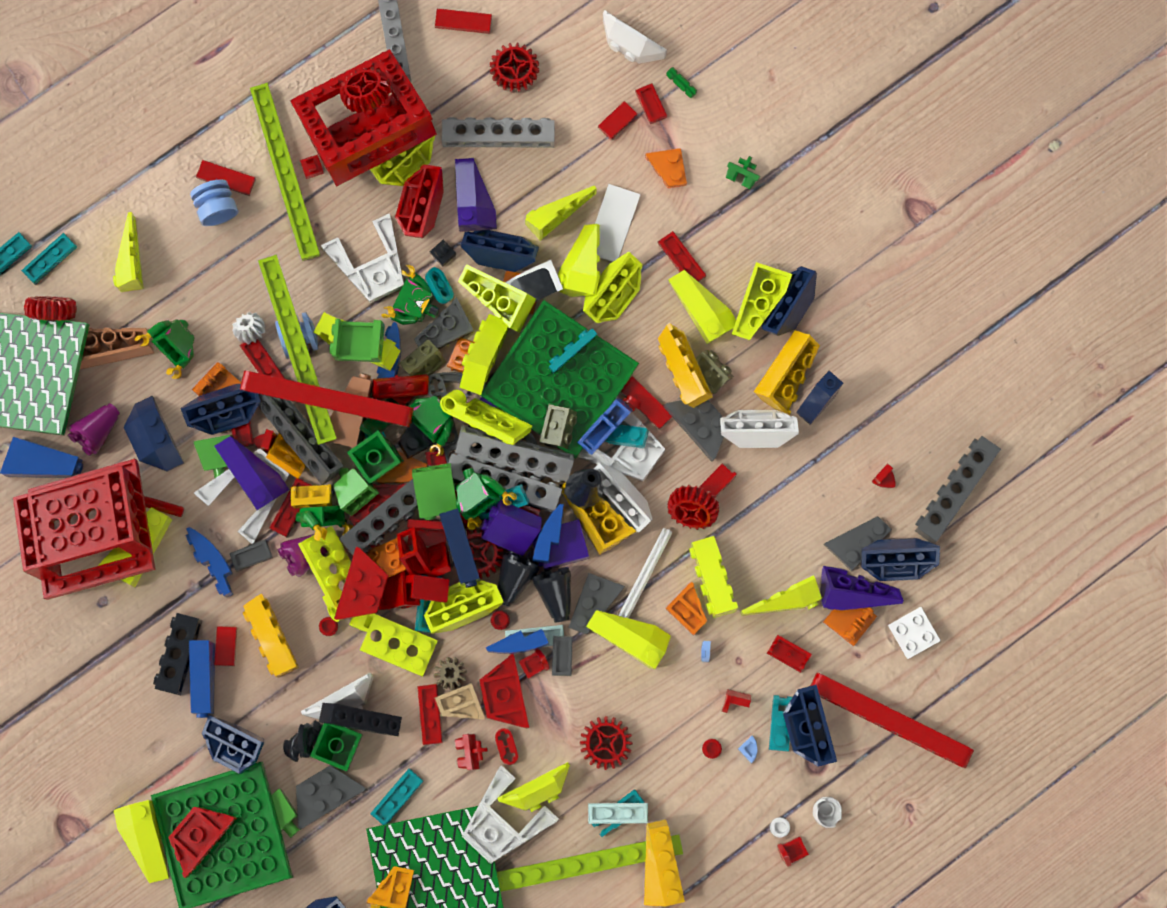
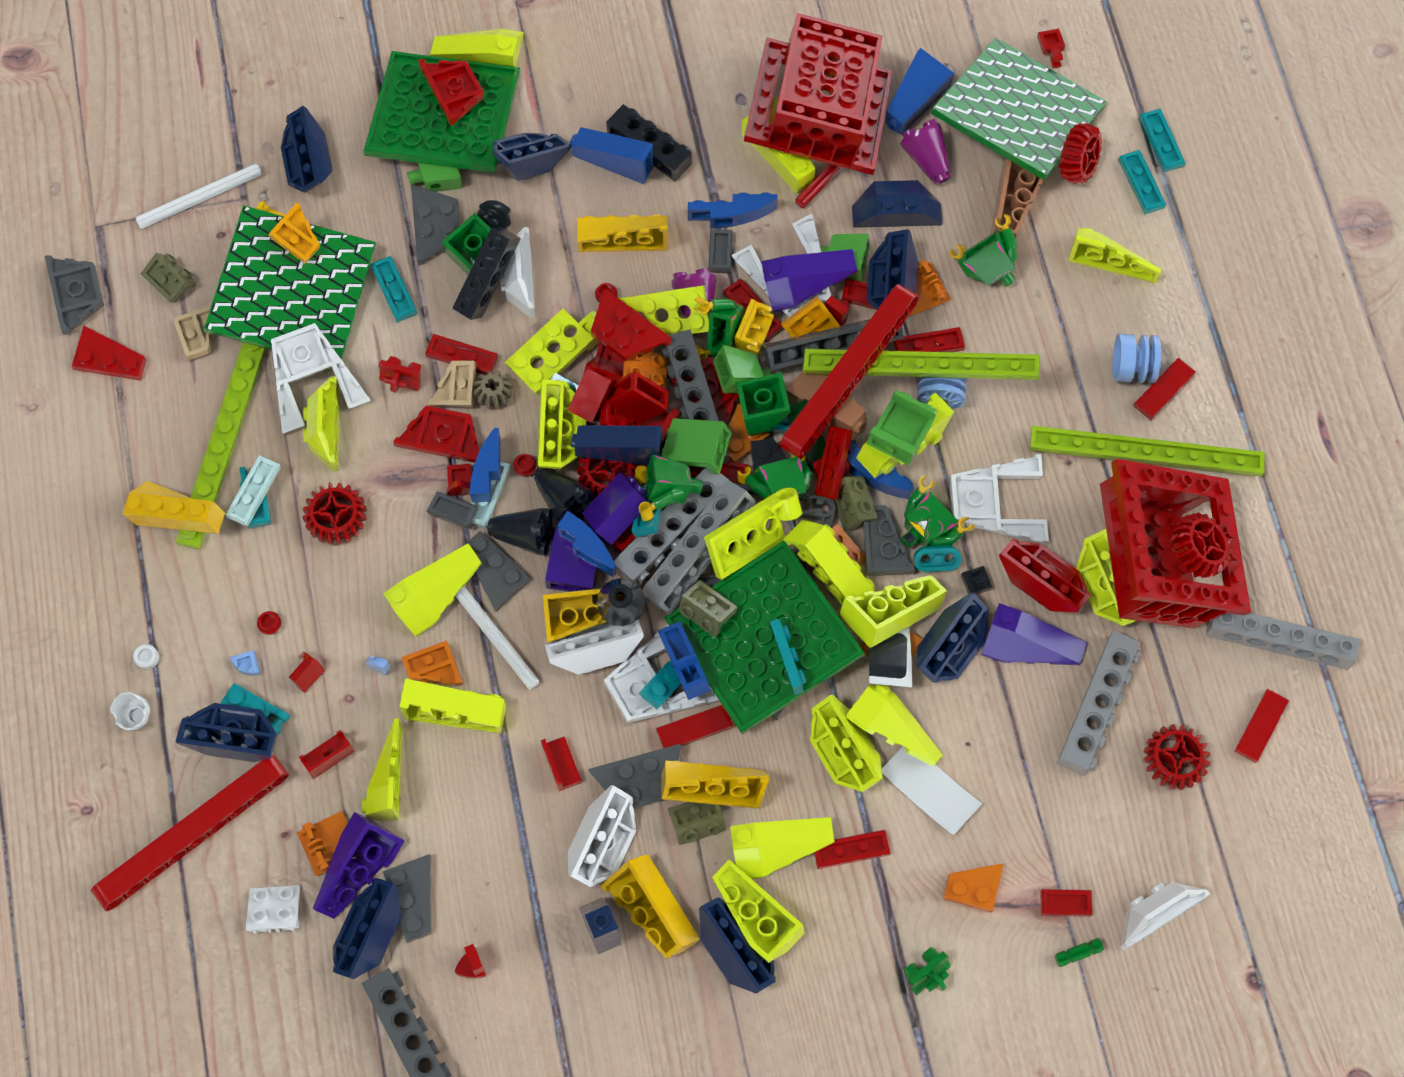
camera: 115 degrees right, 10 degrees down
(225, 646) = (635, 191): red tile -> none
(248, 328) = (974, 338): white gear -> none
(511, 744) = (387, 413): red beam -> none
(551, 215) = (968, 715): neon yellow wedge -> none
(617, 120) = (1060, 852): red tile -> none
(632, 402) = (698, 706): red plate -> none
(693, 507) = (543, 717): red gear -> none
(792, 851) = (113, 657): red tile -> none

